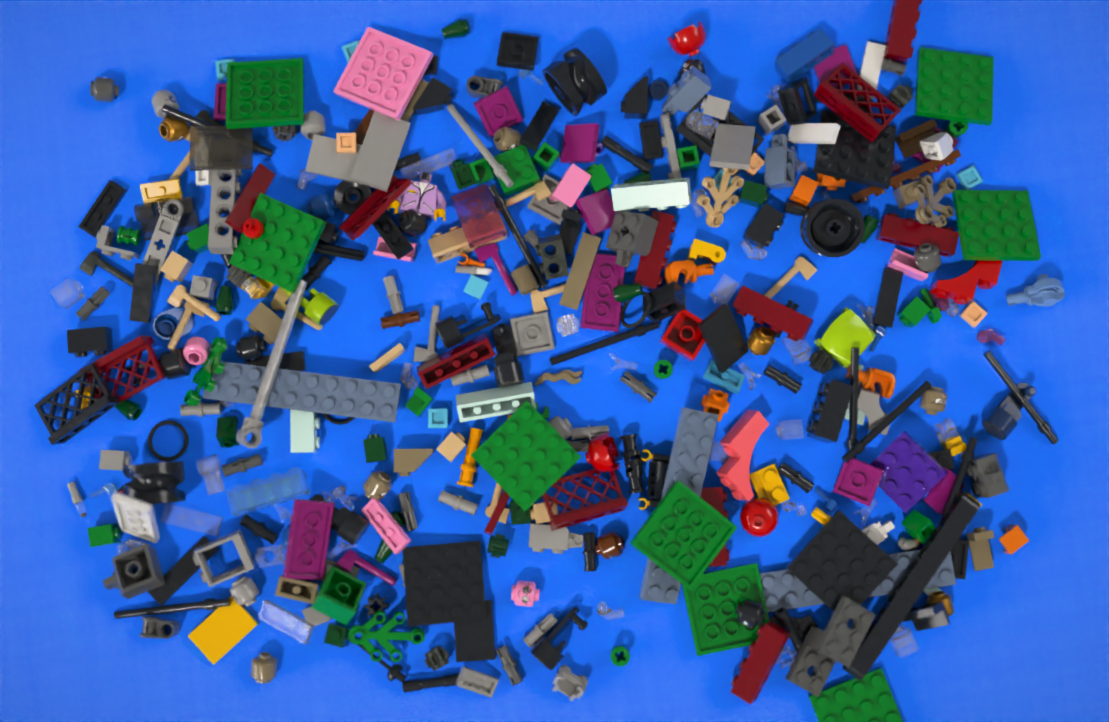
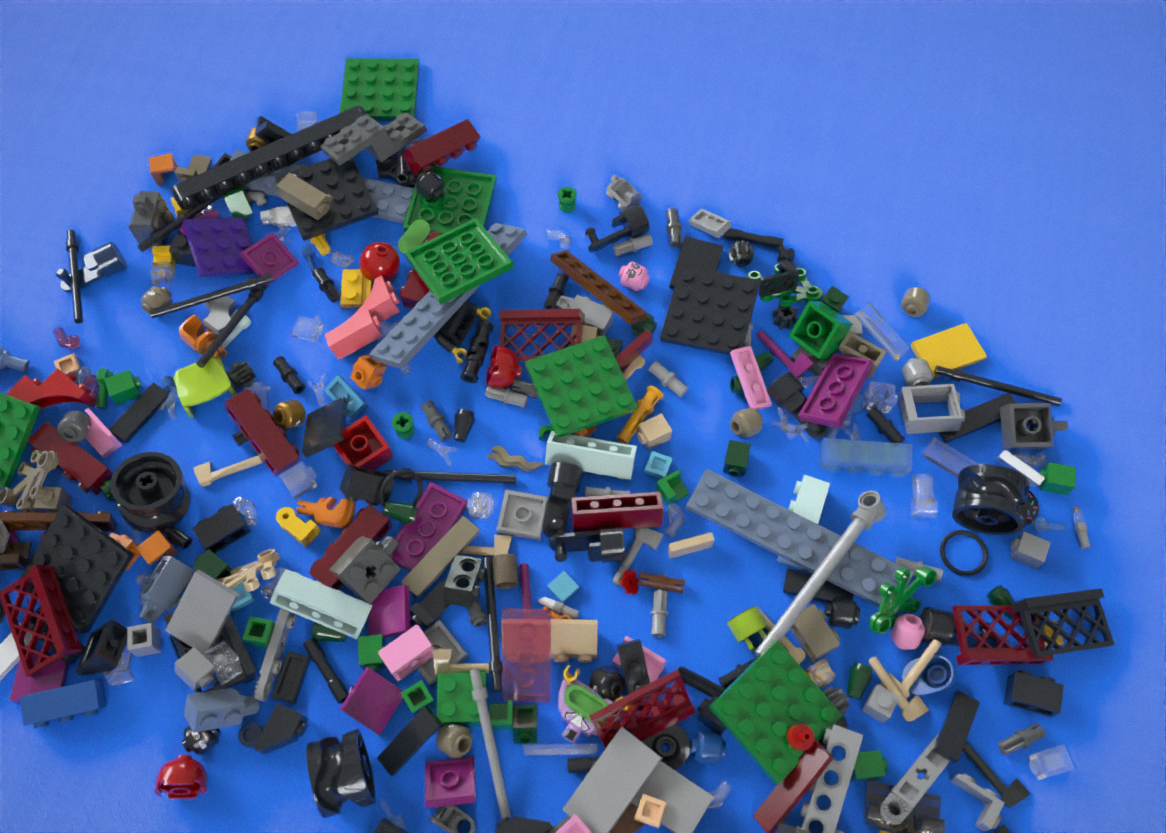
camera: 155 degrees left, 20 degrees down
(128, 235) = (958, 806): green bush -> none
(156, 627) = (1016, 371): dark grey piece -> none
(176, 267) = (907, 743): tan brick -> none
(226, 431) = (893, 535): dark green bracket -> none
(242, 465) = (902, 496): dark grey pin -> none
(381, 639) = (782, 282): none -> black bracket
(407, 511) = (723, 389): dark grey axle -> none
(410, 460) = (701, 435): dark tan slope -> none
(420, 198) = (583, 701): none -> bright green tile
(425, 310) = (630, 582): none -> red plant
(552, 566) = (598, 287): none -> reddish brown plate
(562, 426) = (533, 408): light grey head -> none
(610, 545) = (533, 289): reddish brown head -> none
(614, 392) = (463, 423): none -> black cone
(740, 556) = (414, 235): none -> bright green tile
(813, 133) = (106, 600): white tile -> none
(829, 411) = (260, 323): black brick -> none
(855, 547) = (304, 196): none -> dark tan brick

